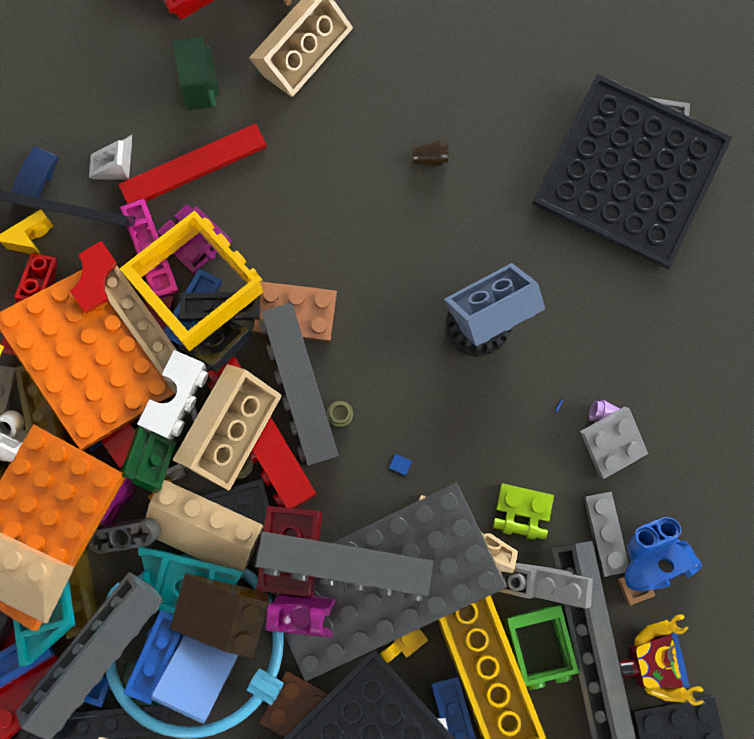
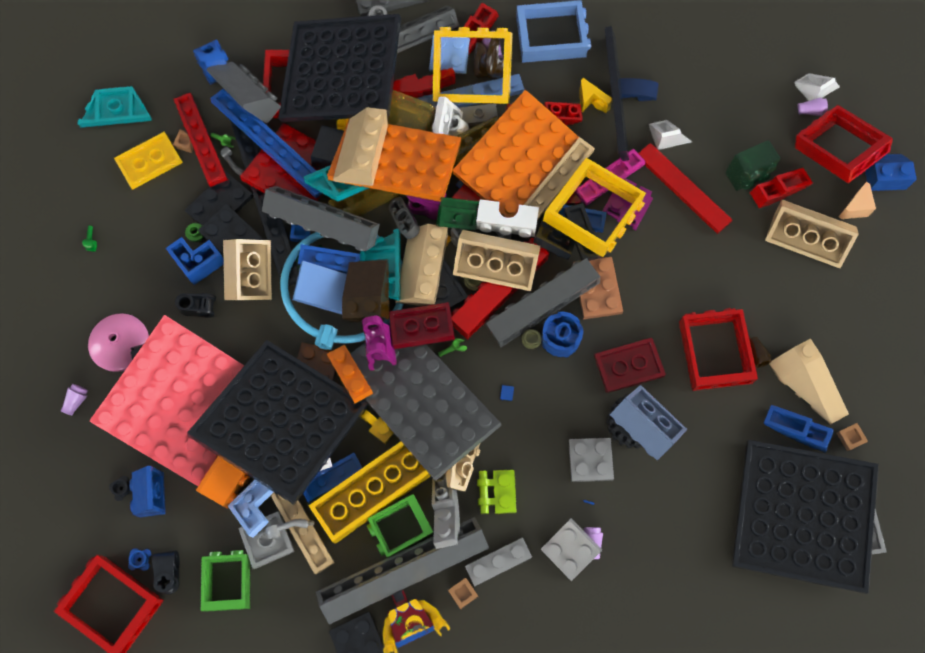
camera: 85 degrees right, 5 degrees down
(96, 266) = (583, 142): red tile -> none
(231, 53) = (780, 187): none -> red slope
(326, 512) = (455, 346): none -> bright green hand
(327, 665) = (349, 374): none -> orange plate
(345, 564) = (420, 358): dark grey brick -> none
(348, 373) = (562, 334): none -> blue brick
(407, 305) = (629, 365): none -> dark red plate
(418, 166) = (749, 373): none -> red window
(476, 109) = (809, 377): none -> tan wedge
(510, 387) = (591, 459): none -> light grey plate
(532, 141) = (799, 428): none -> blue slope
(555, 90) = (852, 437): none -> medium nougat plate
(643, 571) = (478, 593): blue piece -> none

